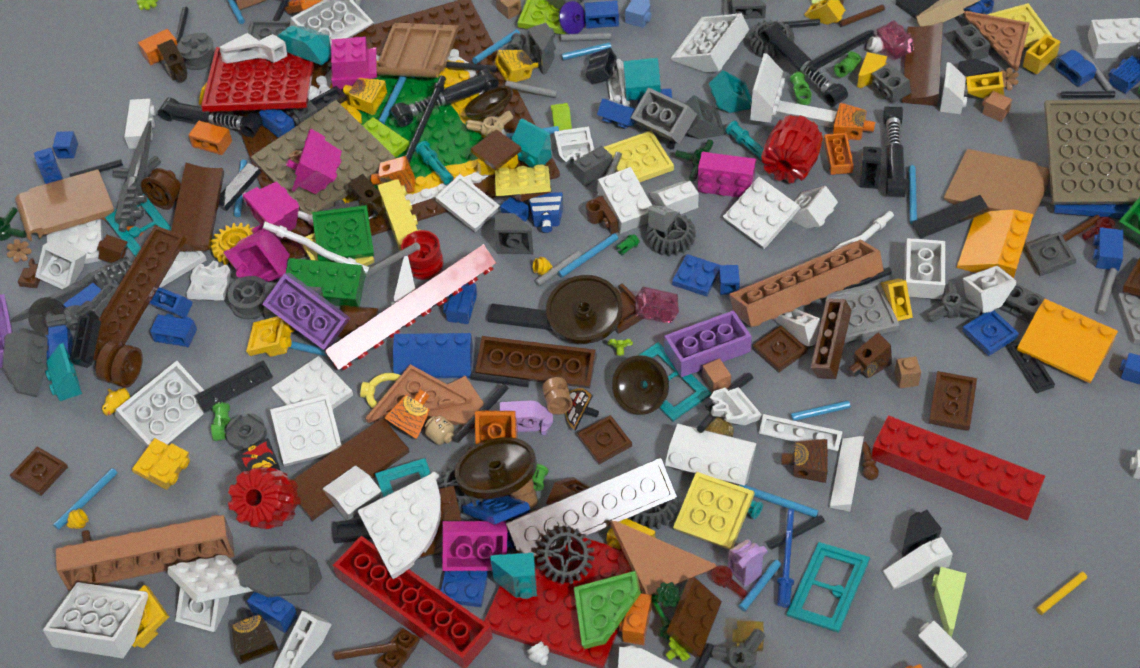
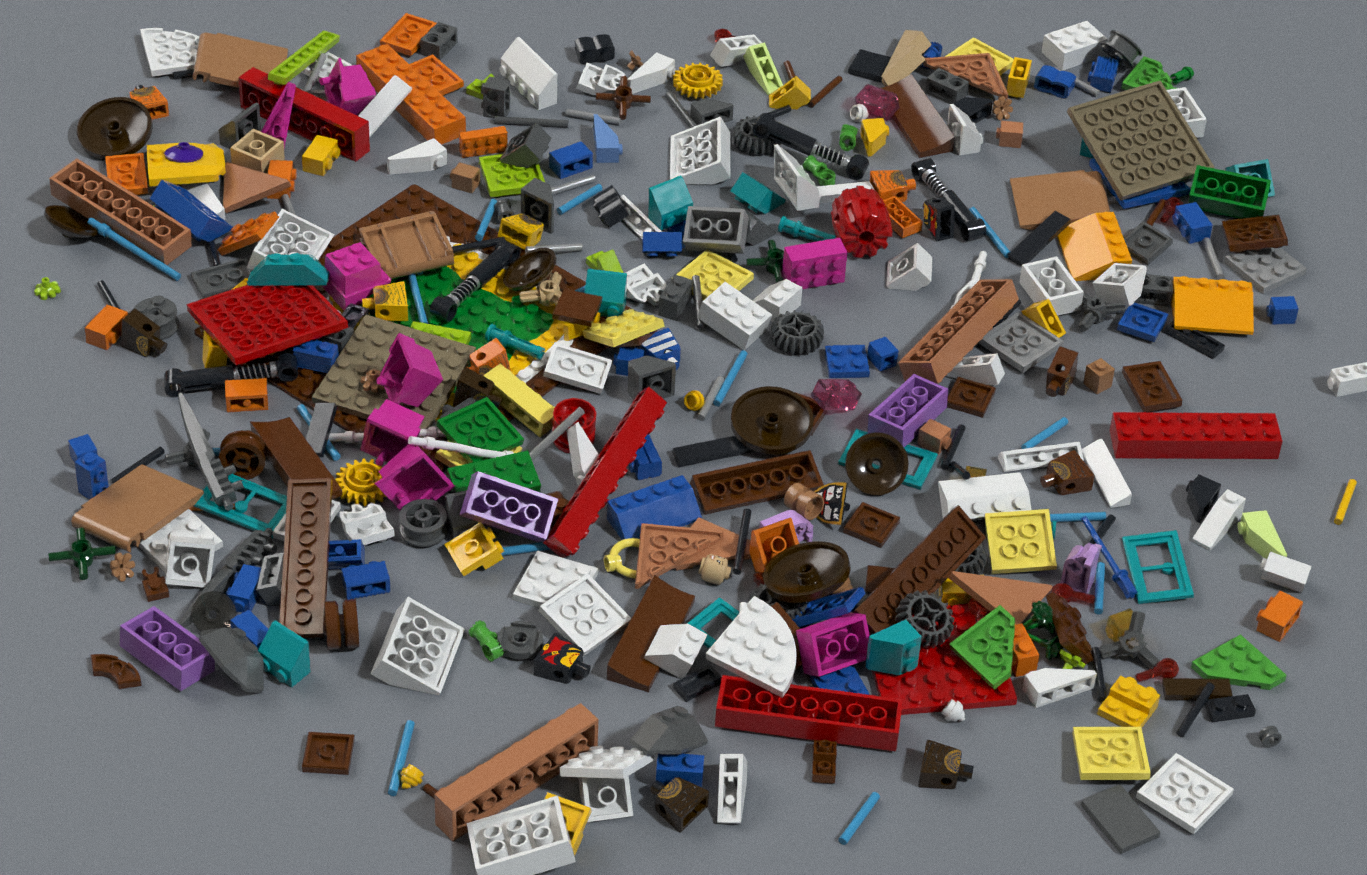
camera: 35 degrees left, 10 degrees down
(70, 316) = (258, 596): dark grey bush -> none
(85, 341) = (287, 616): black piece -> none
(112, 249) = (233, 529): reddish brown brick -> none
(115, 400) = (359, 660): yellow animal -> none
(139, 114) = (153, 406): white brick -> none
(162, 463) = (459, 696): yellow plate -> none
(233, 386) = (474, 606): black tile -> none
(248, 47) = (233, 290): white arch -> none
(264, 498) = (606, 676): red wheel -> none
(364, 651) = (796, 770): reddish brown bar -> none
(410, 414) = (681, 563): orange torso -> none
(438, 87) = (469, 271): black bar -> none
(499, 379) = (732, 510): black bar -> none
(572, 17) = (547, 169): dark purple dish -> none
(599, 212) = (715, 335): reddish brown plate -> none
(620, 345) = (825, 441): lime plant -> none
(629, 243) = (763, 353): green pin -> none
(660, 217) = (786, 318): light grey slope -> none
(734, 406) = (972, 454): white plate -> none
(761, 212) = (869, 287): white plate -> none
(831, 338) = (1017, 368): reddish brown brick -> none
(840, 50) = (836, 124): black axle -> none
(870, 471) = (1123, 465): reddish brown bar -> none
(891, 83) = (902, 140): dark grey brick -> none
(985, 84) = (990, 117): yellow slope -> none
(1087, 94) = (1063, 107): black bar -> none

